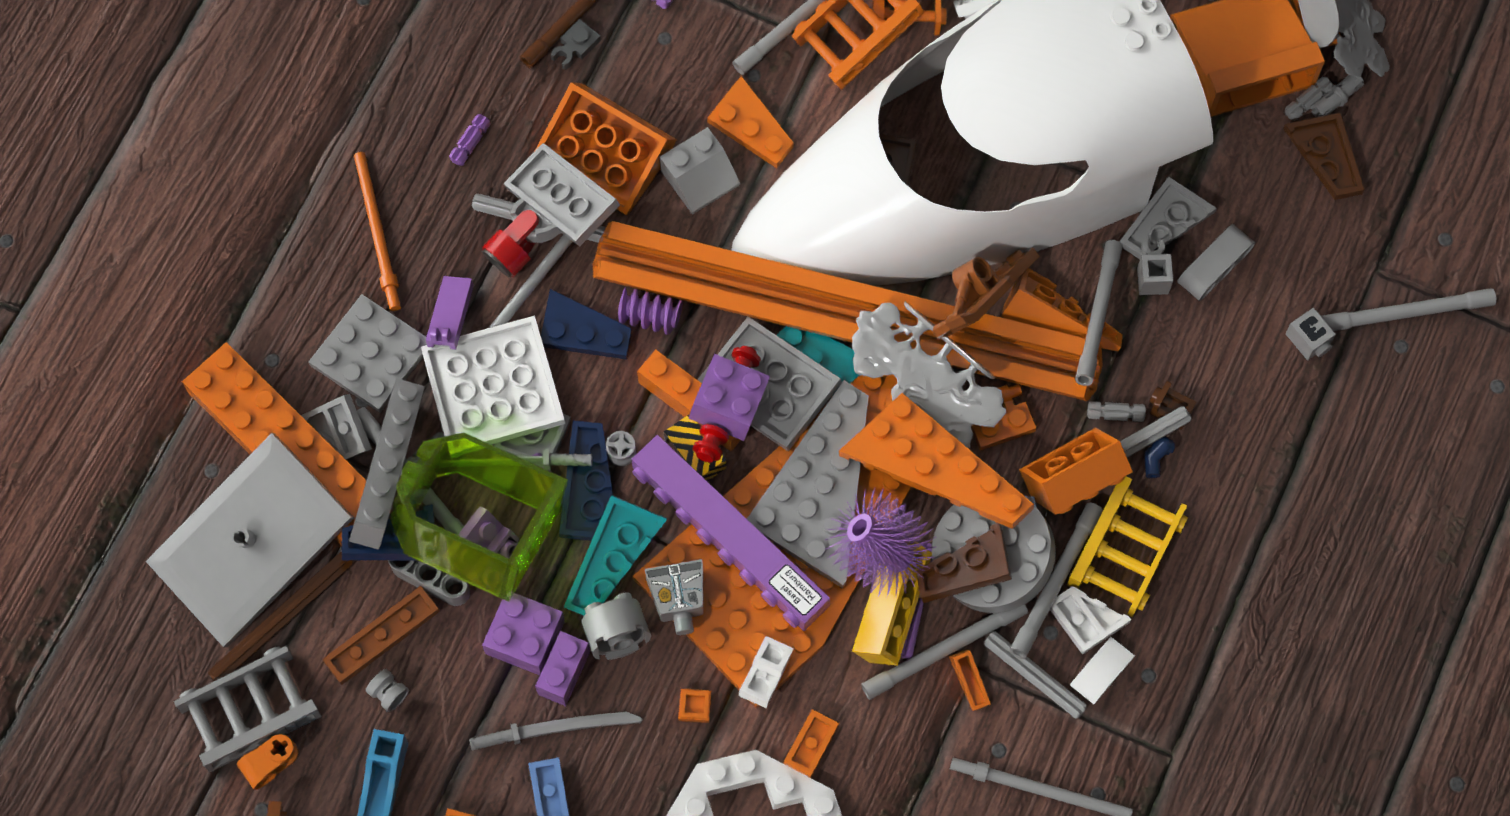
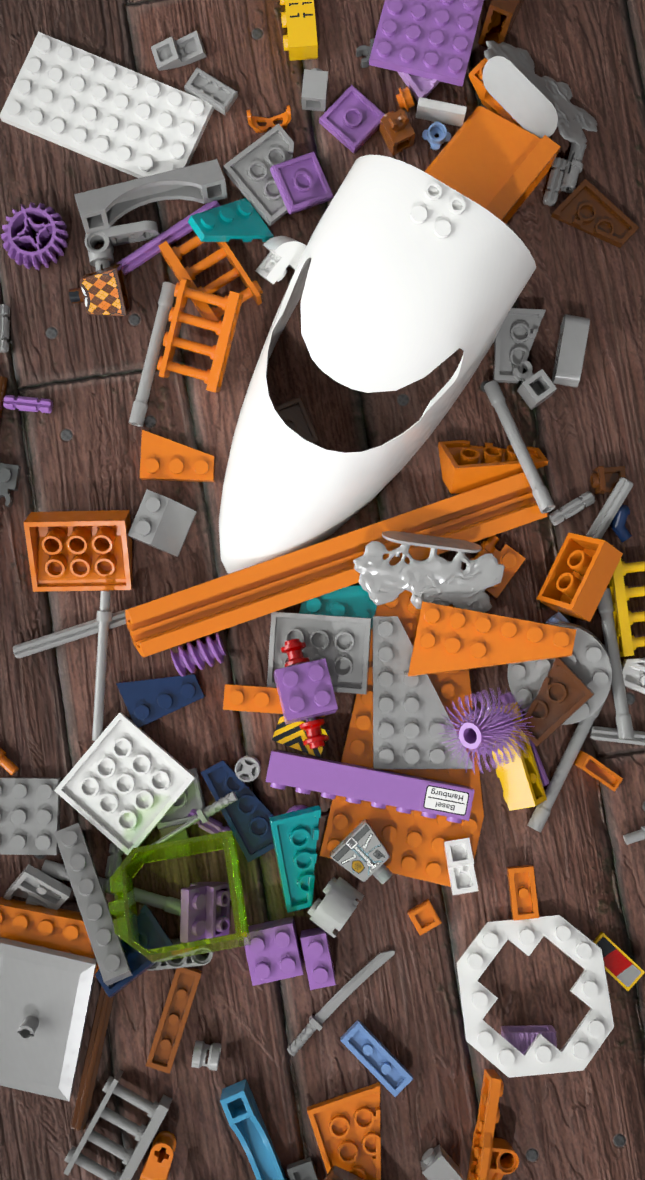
camera: 30 degrees left, 15 degrees up
(449, 311) = (56, 750): medium lavender hinge -> none
(551, 201) = (74, 623): light grey plate -> none
(981, 288) = (434, 490): dark orange piece -> none

